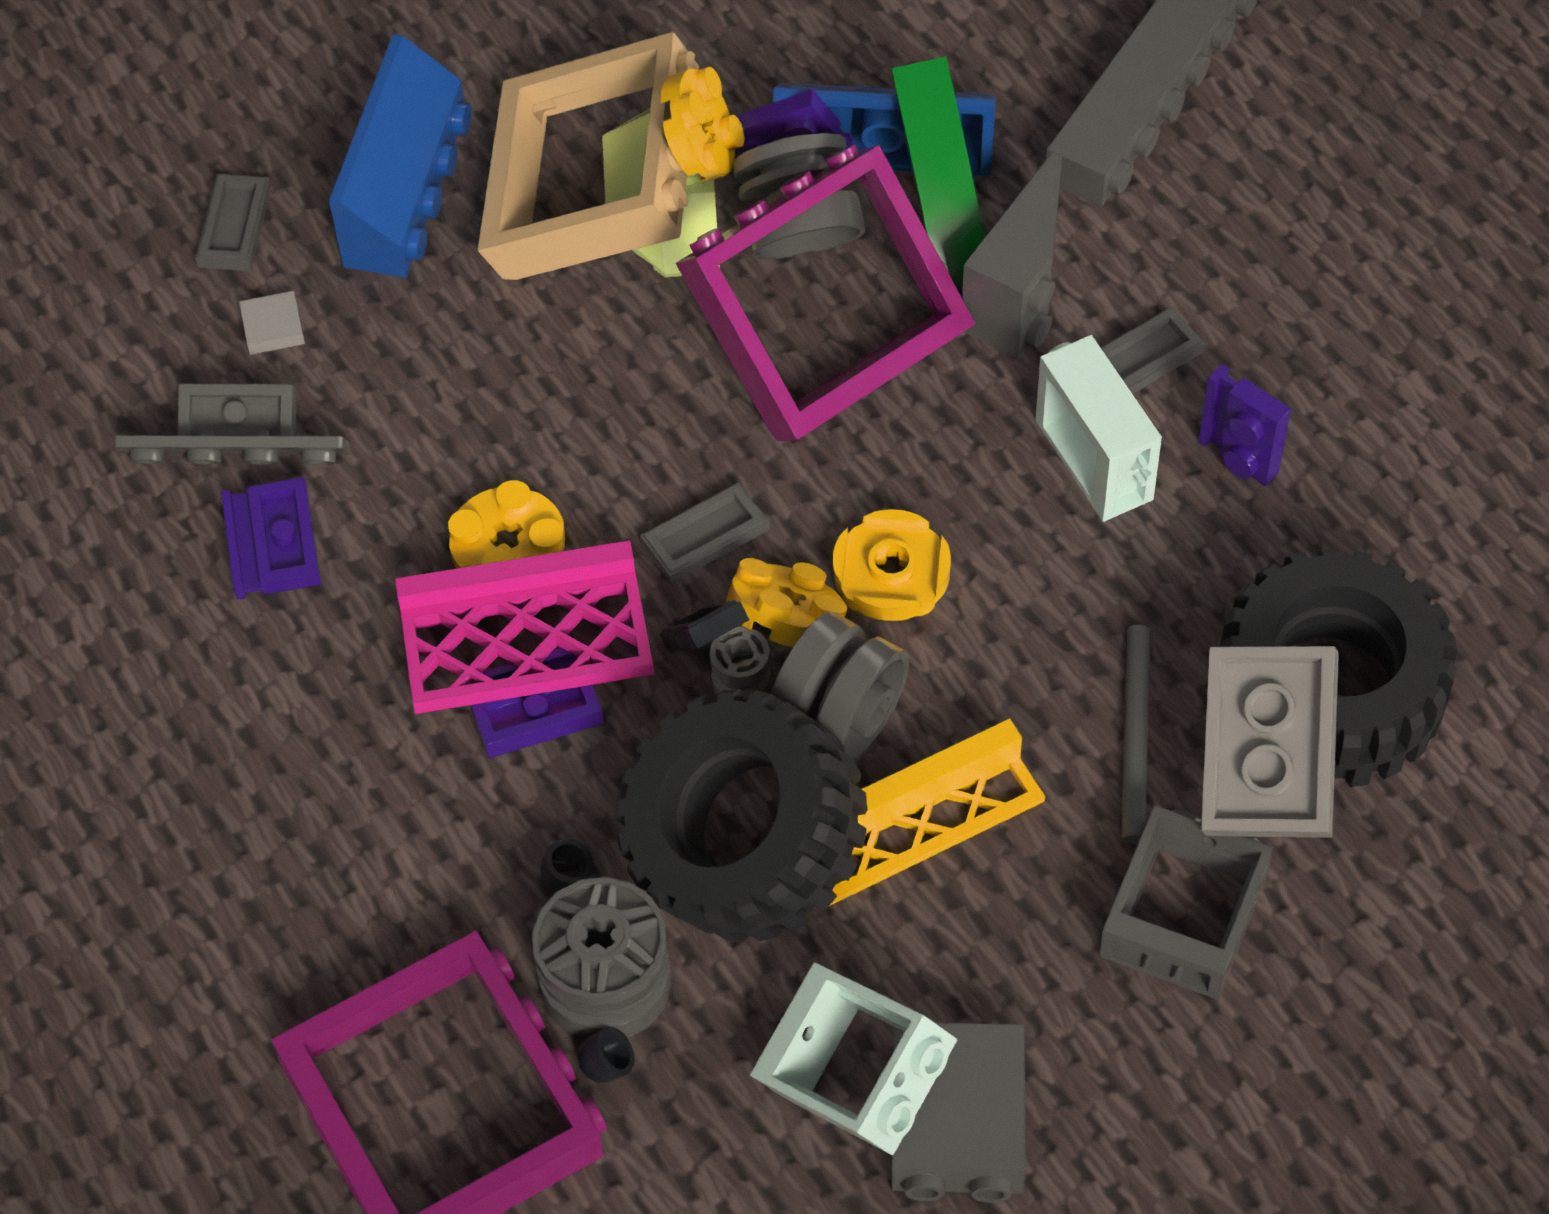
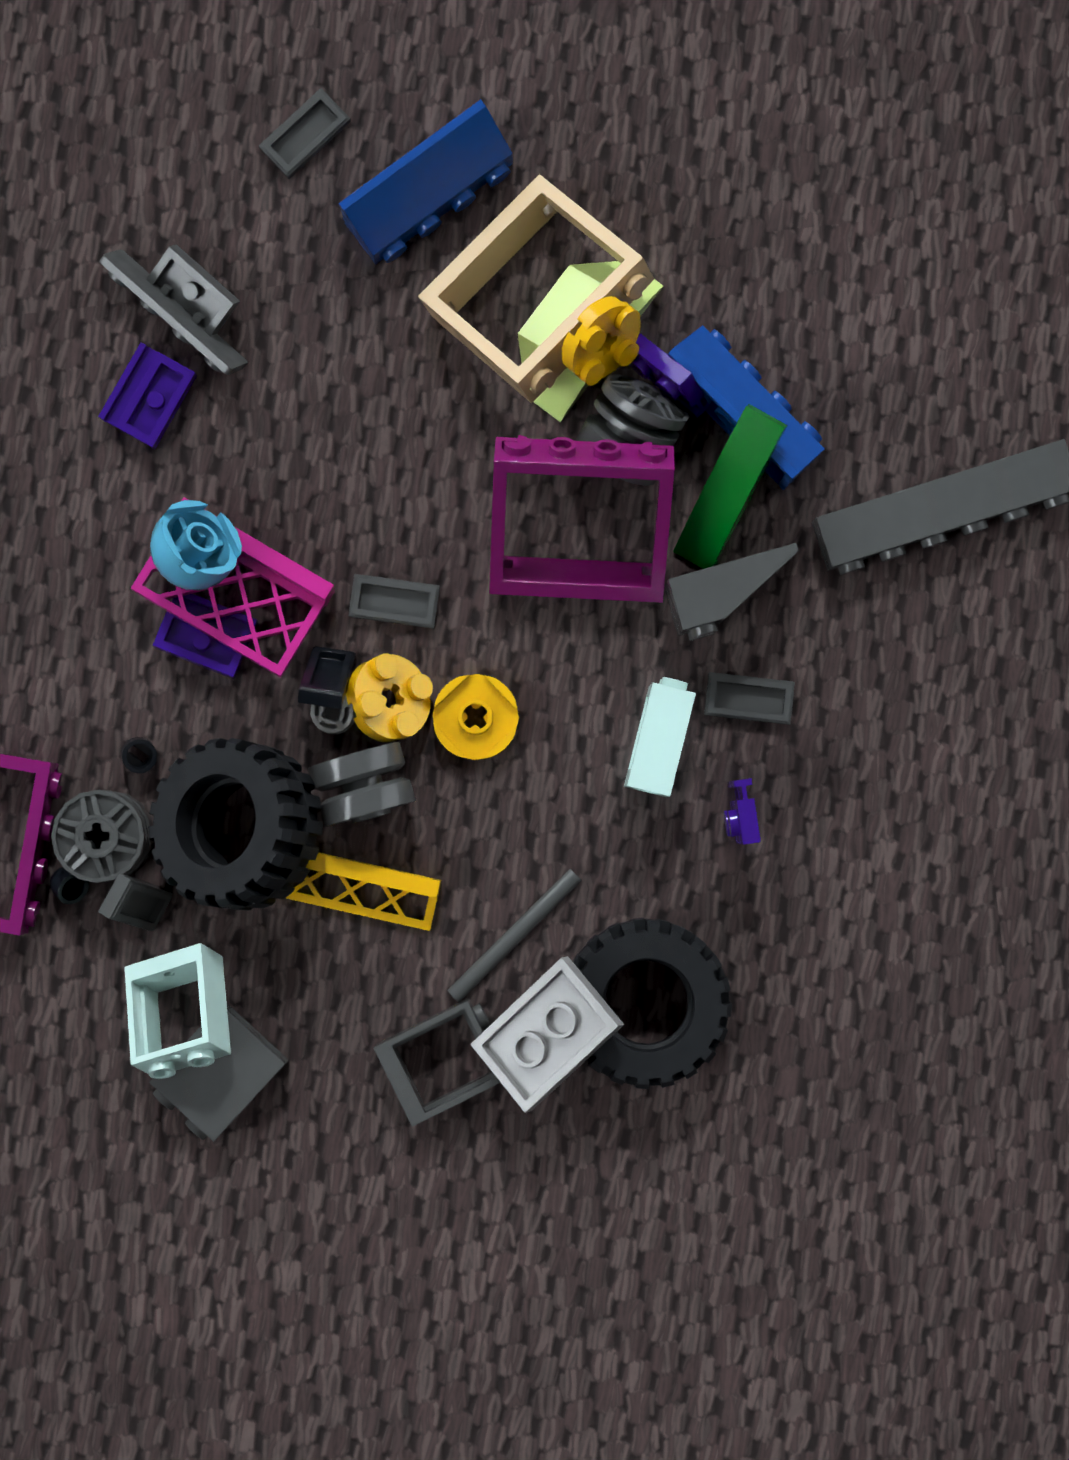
camera: 35 degrees right, 30 degrees up
(271, 322) = (268, 233): light grey tile -> none
(450, 599) = (194, 546): none -> medium azure cylinder
(506, 508) = (298, 492): yellow plate -> none
(702, 994) = (135, 902): none -> dark grey tile

